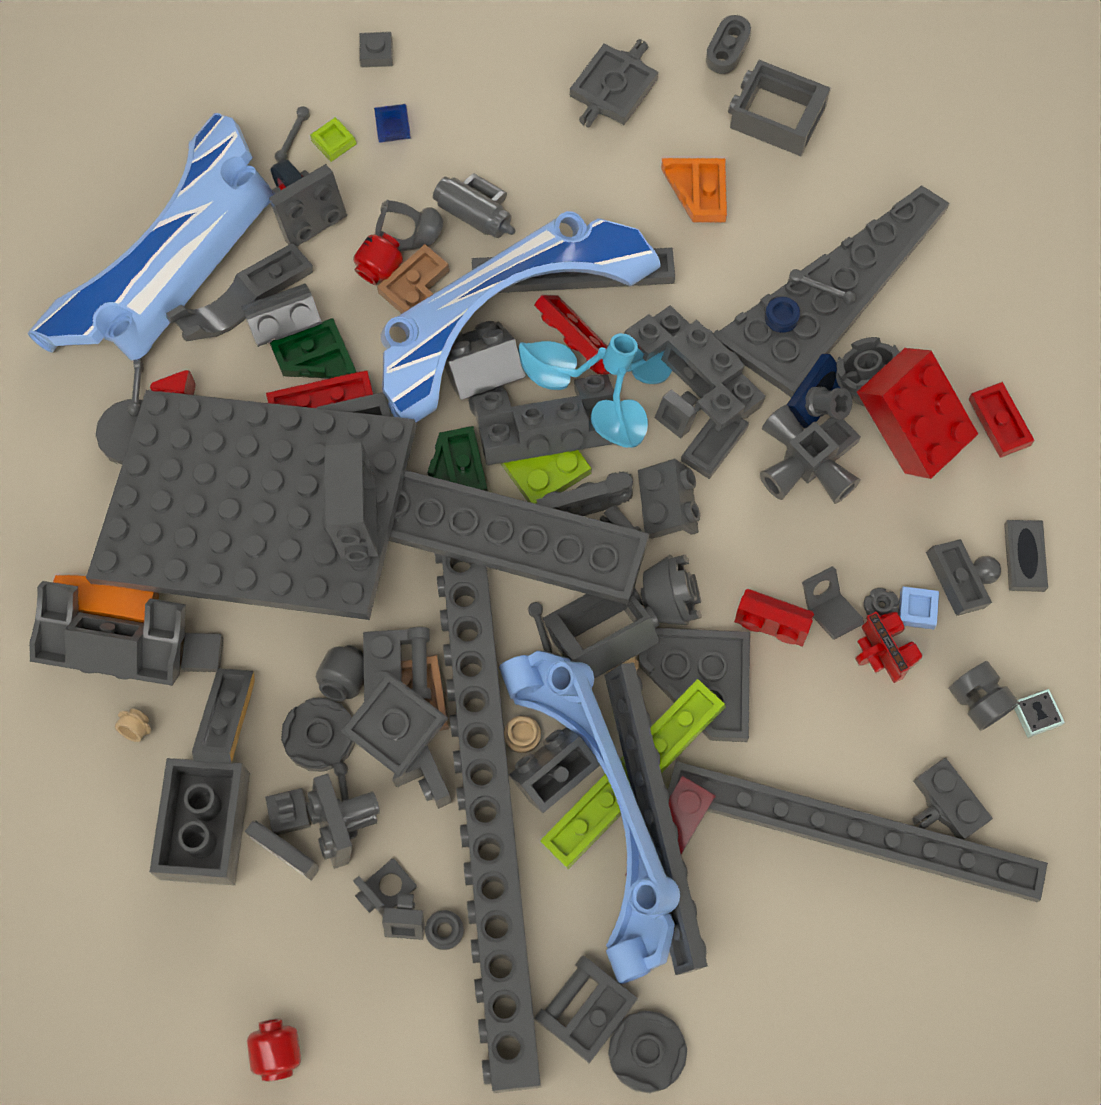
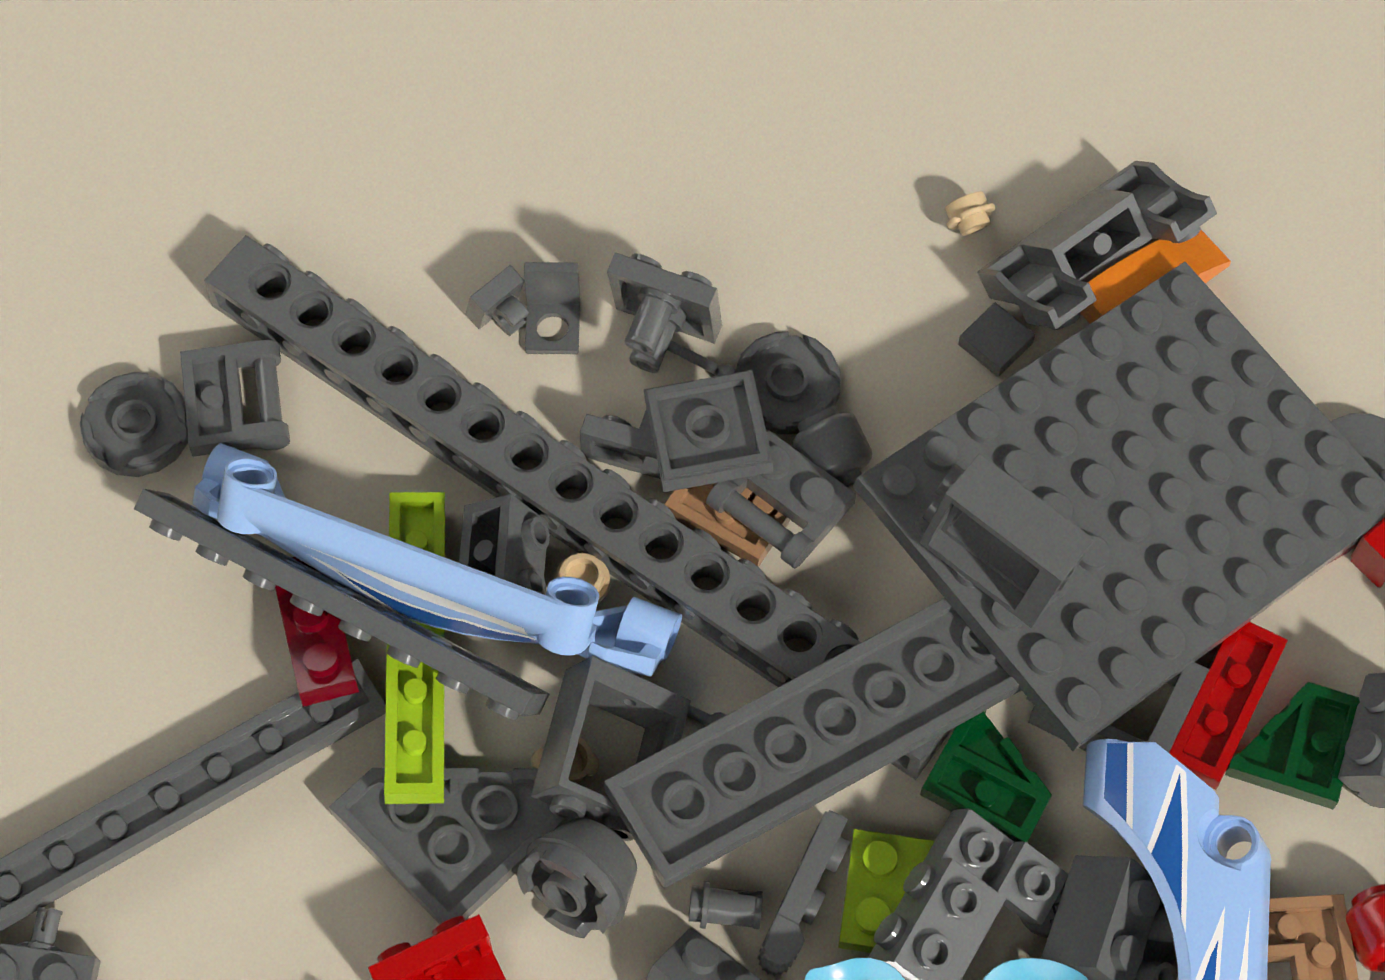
camera: 130 degrees right, 5 degrees down
(200, 822) = (790, 188): dark grey brick -> none
(223, 716) = (889, 288): dark grey plate -> none
(273, 1050) = (491, 95): red head -> none
(282, 850) = (692, 244): dark grey tile -> none
(288, 811) = (735, 286): dark grey tile -> none
(437, 920) = (452, 322): dark grey plate -> none

